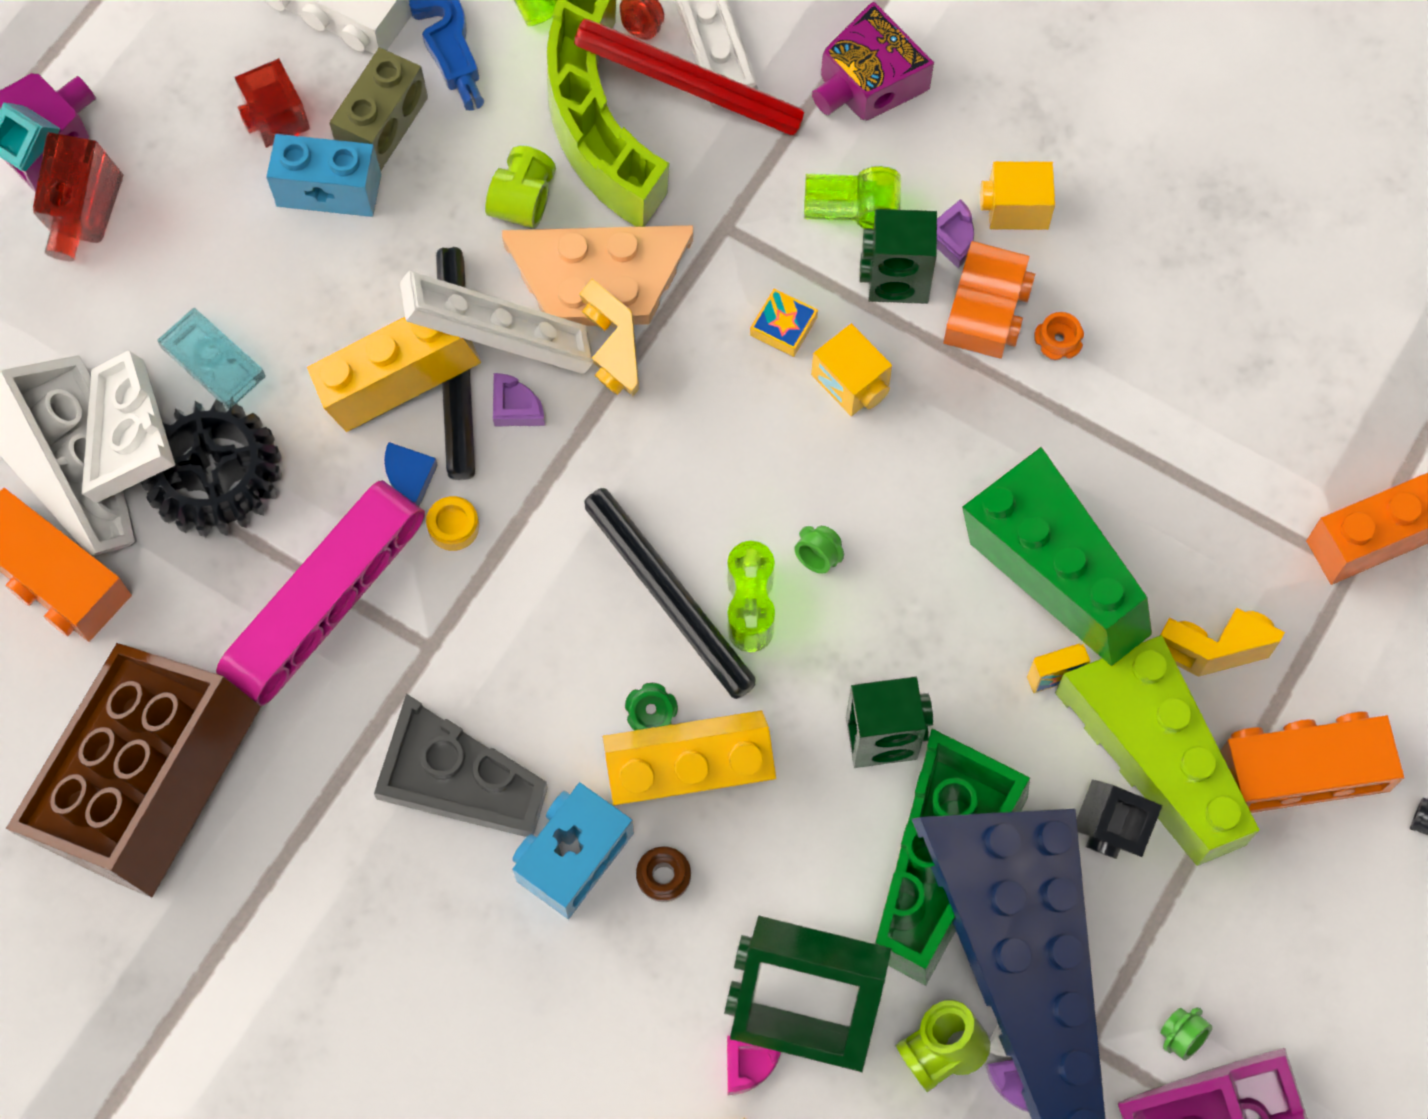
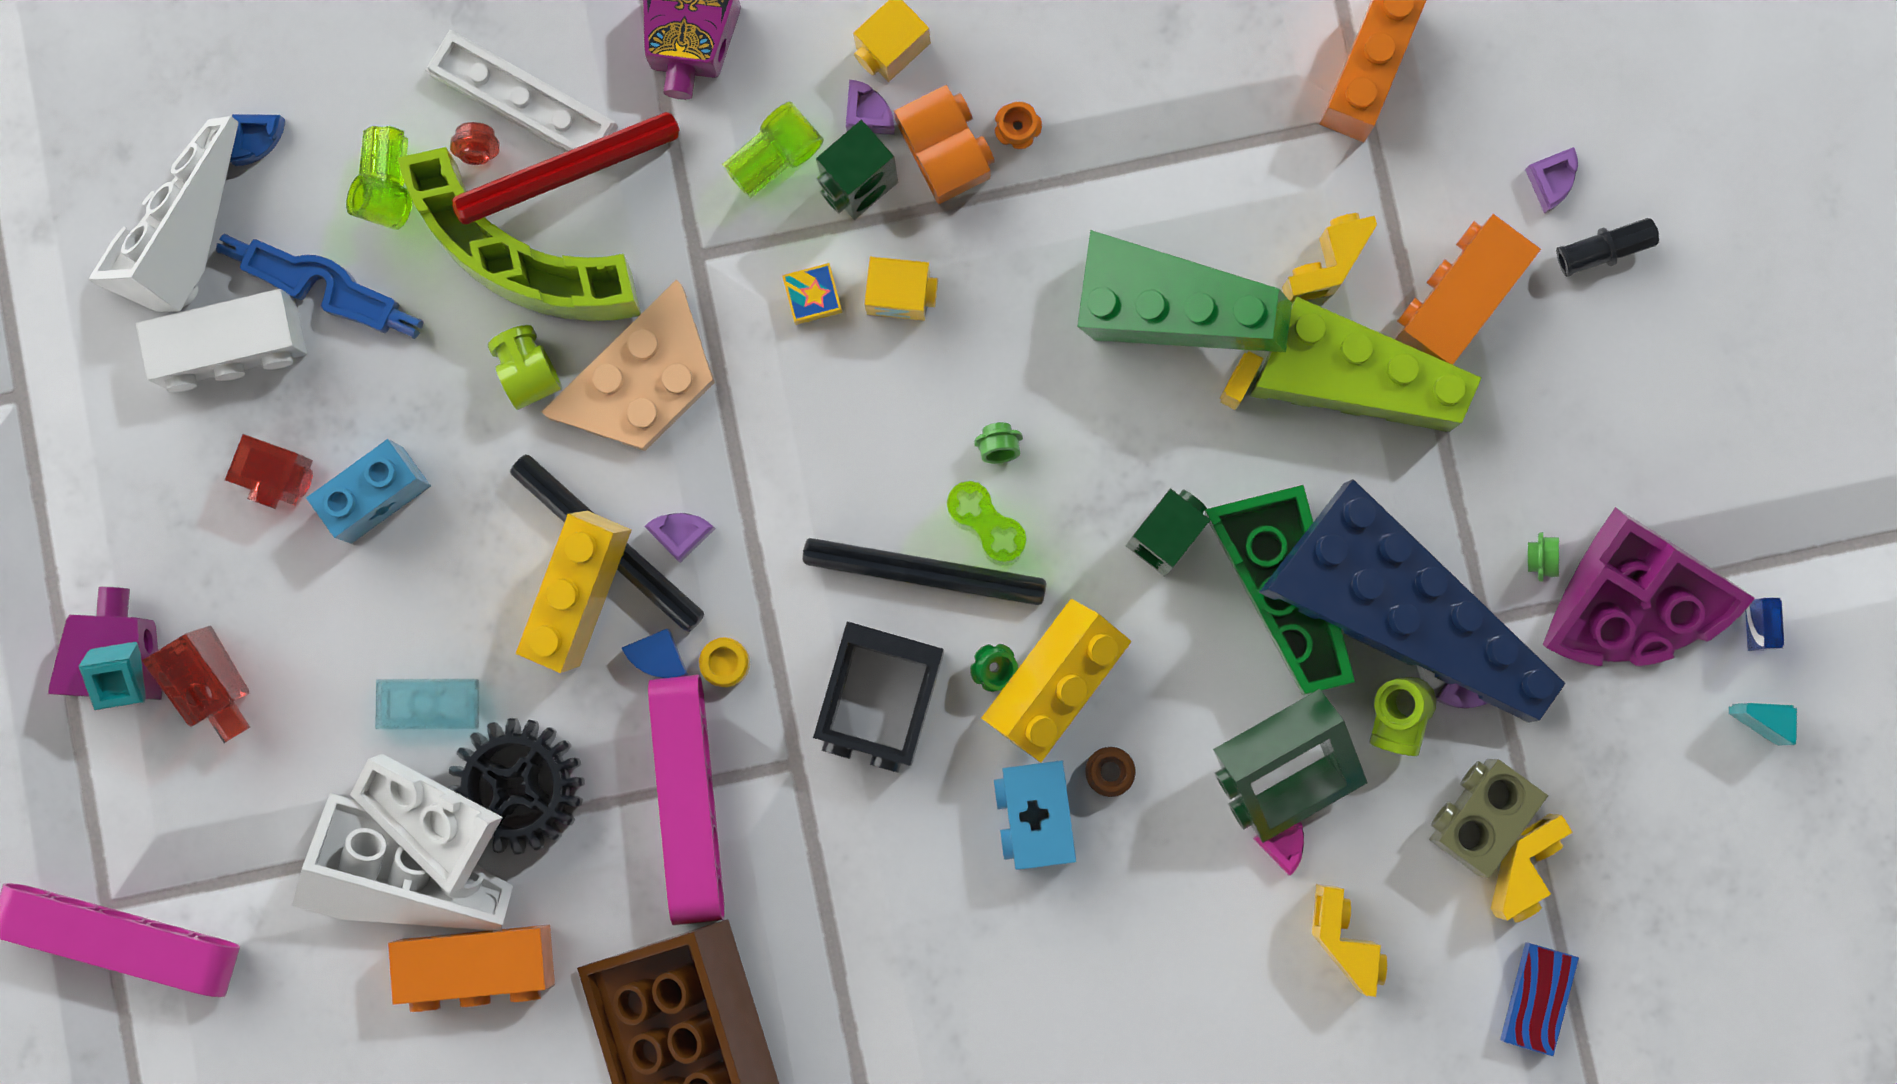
camera: 35 degrees left, 15 degrees up
(381, 104) = (355, 400): olive brick -> none
(455, 776) = (907, 837): dark grey wing -> none
(495, 322) = (620, 496): white tile -> none
(521, 608) = (890, 645): none -> black window
(618, 354) = (724, 433): yellow slope -> none
(1116, 820) = (1378, 454): black brick -> none

